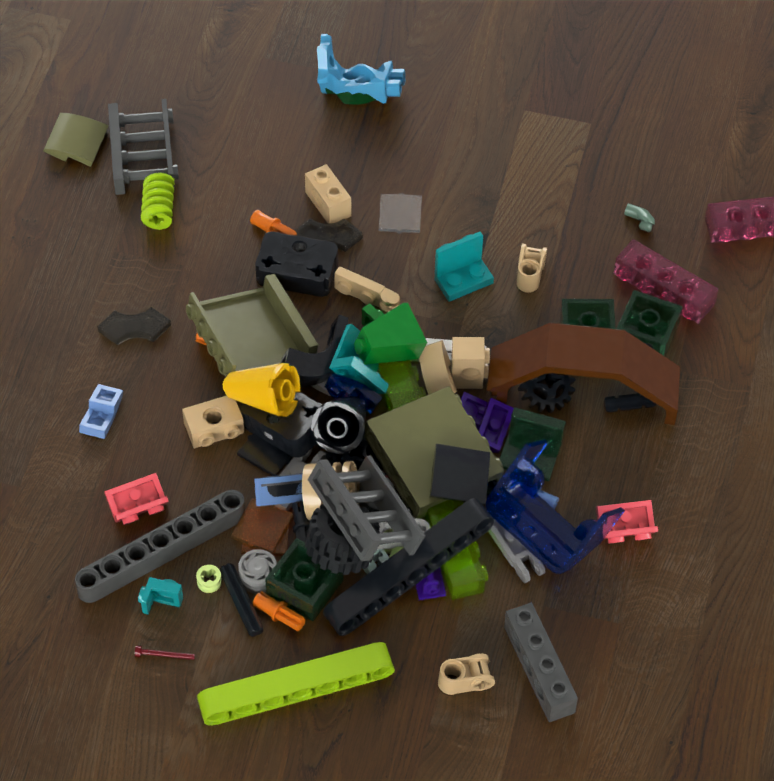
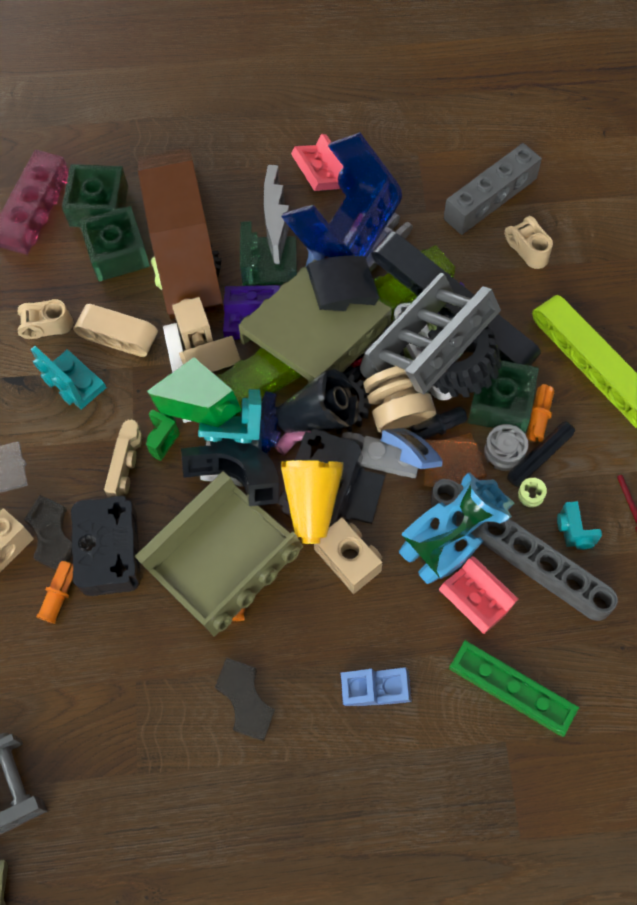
camera: 105 degrees left, 10 degrees up
(55, 503) = (514, 688): none -> green tile
(157, 201) = (53, 743): lime piece -> none
(197, 487) = (478, 503): none -> dark azure hips
(498, 314) = (115, 330): none -> tan beam
(567, 458) = (273, 210): none -> light grey slope

